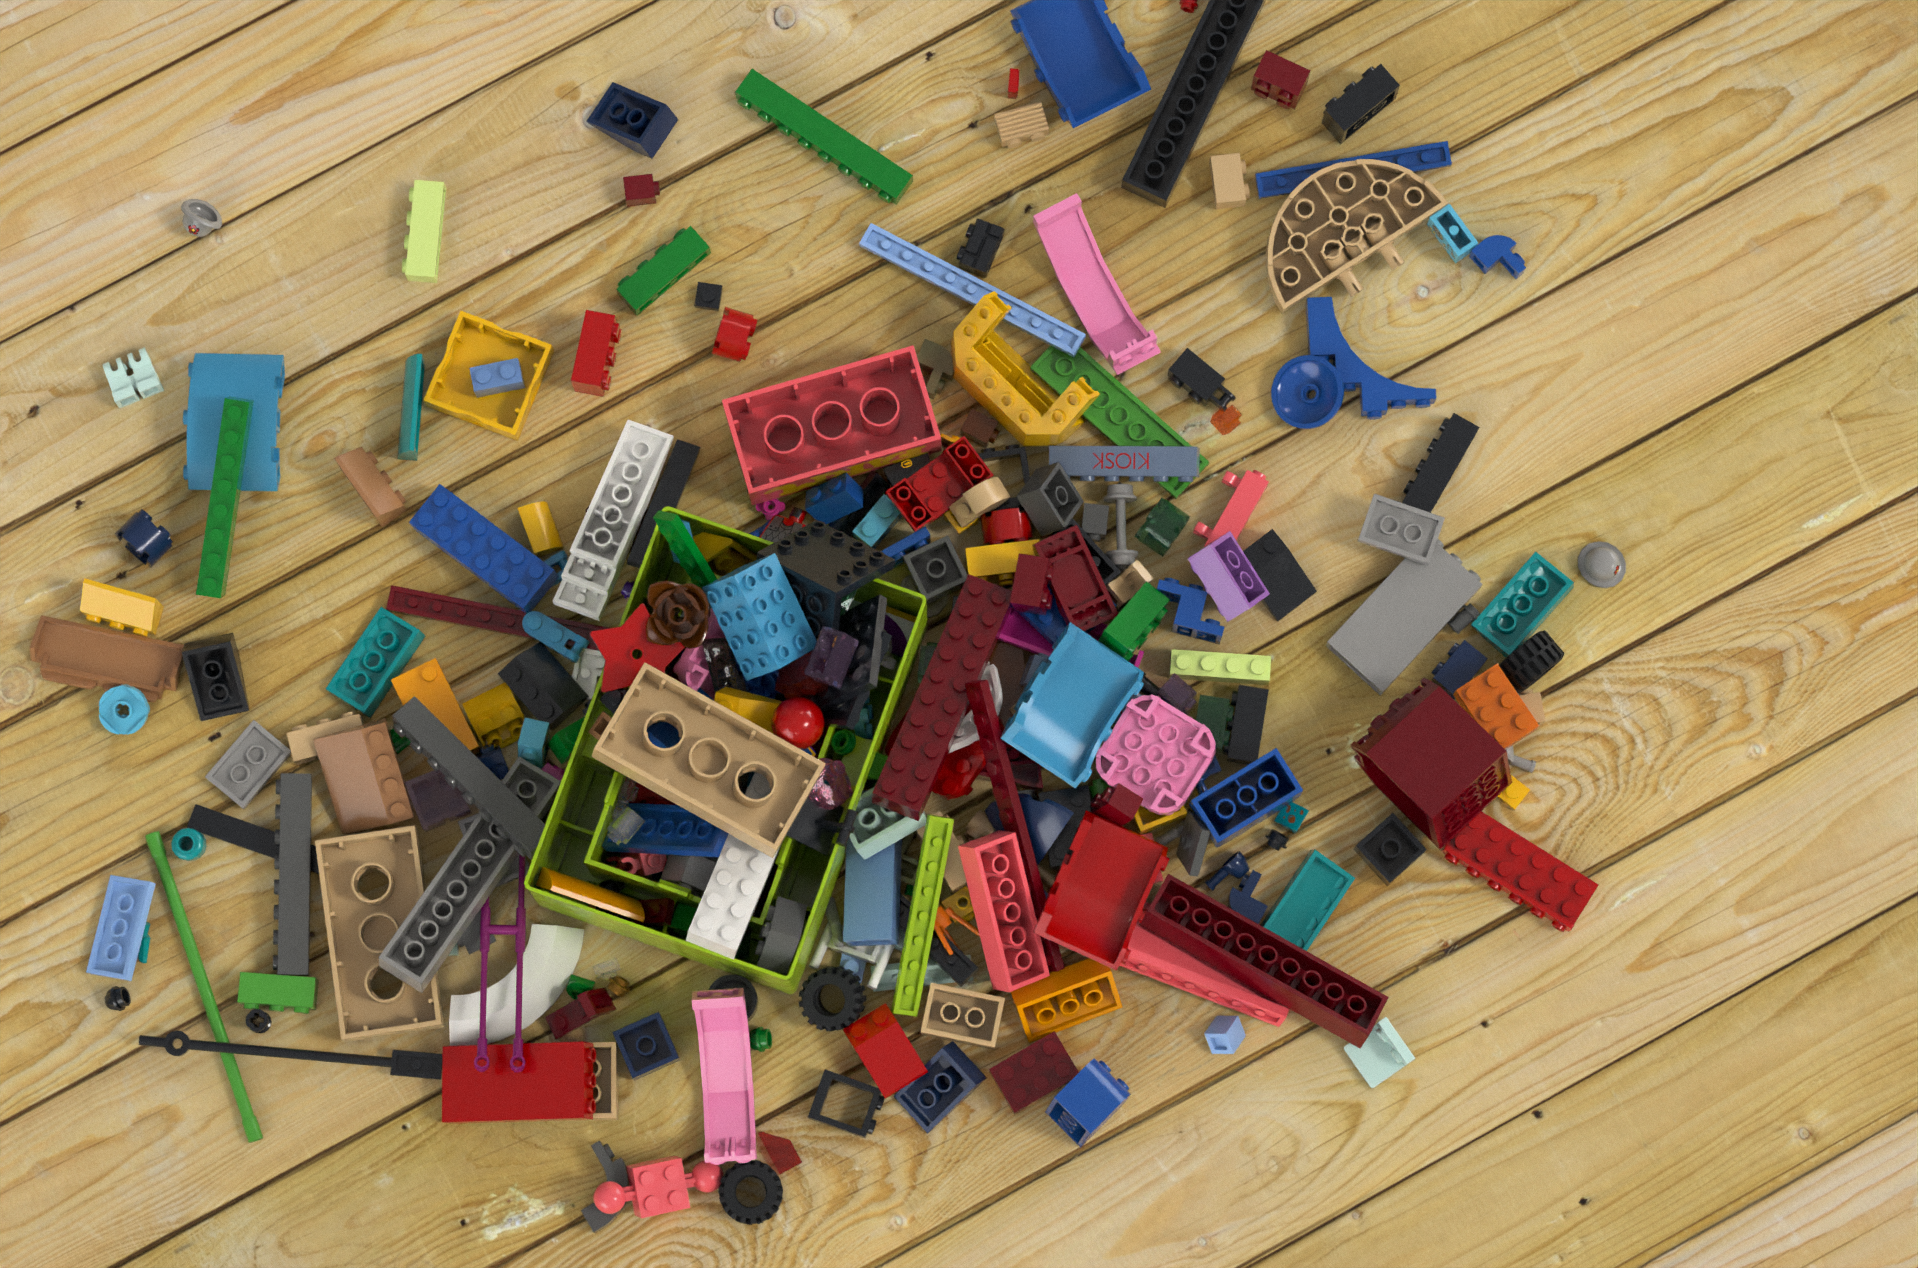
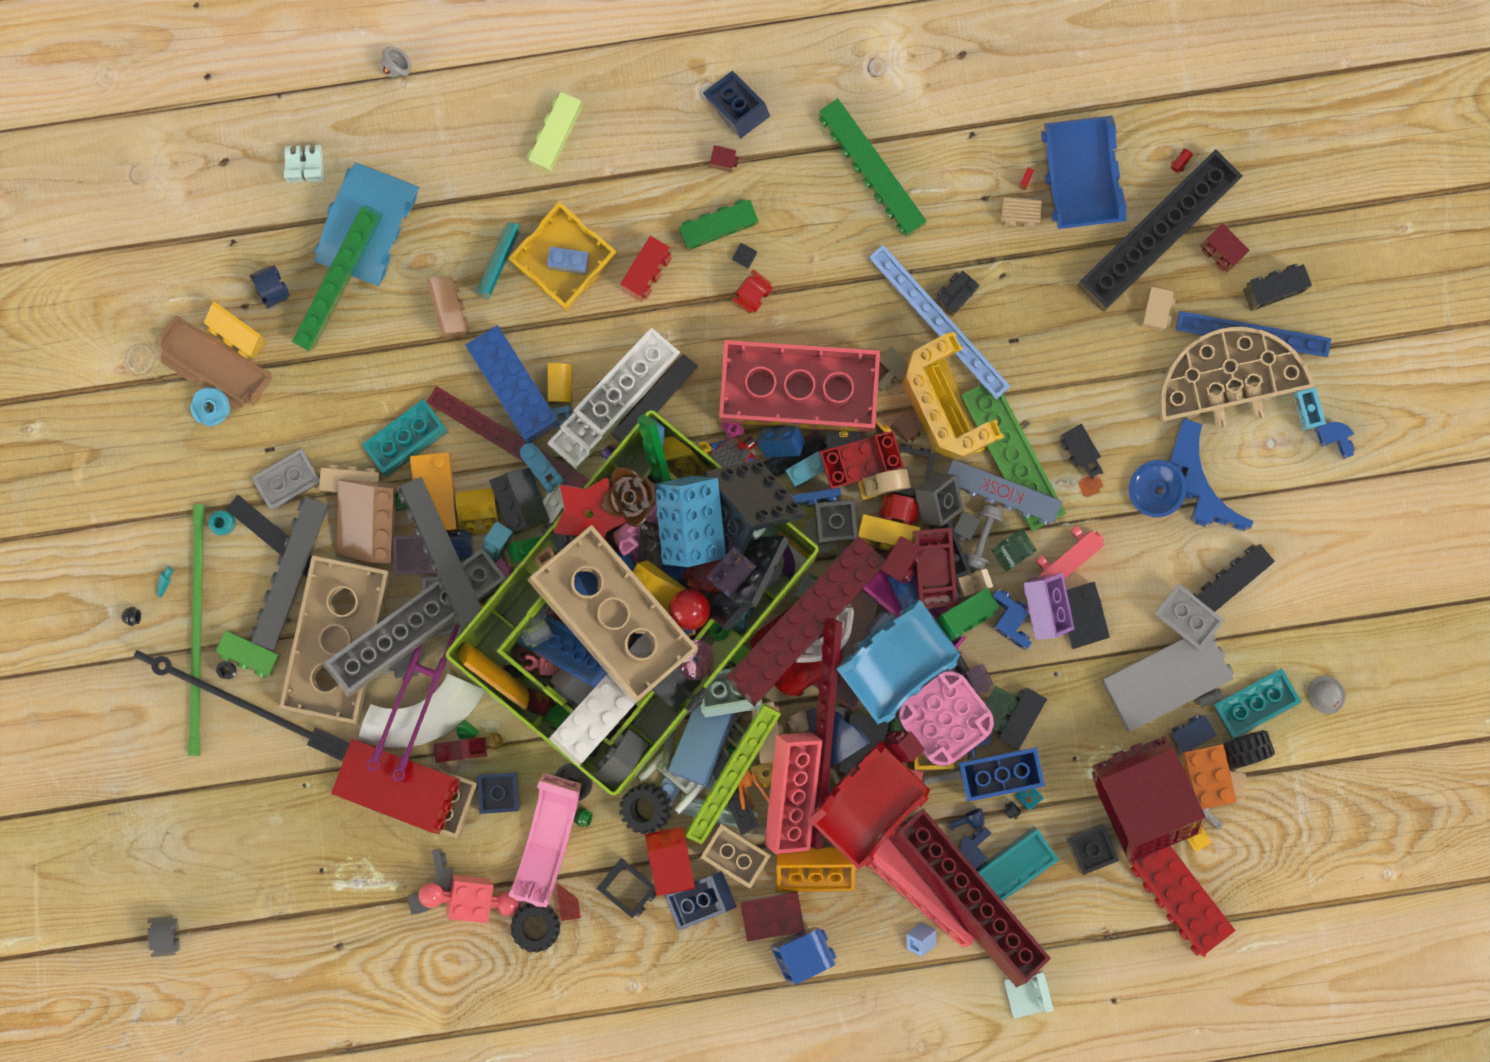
camera: 20 degrees right, 5 degrees up
(120, 928) = (151, 566): light blue plate -> none
(216, 676) = (285, 406): black slope -> none
(1092, 287) = (1028, 354): bright pink panel -> none
(1193, 843) = (949, 793): dark grey plate -> none
(1220, 667) = (1018, 668): yellowish green brick -> none

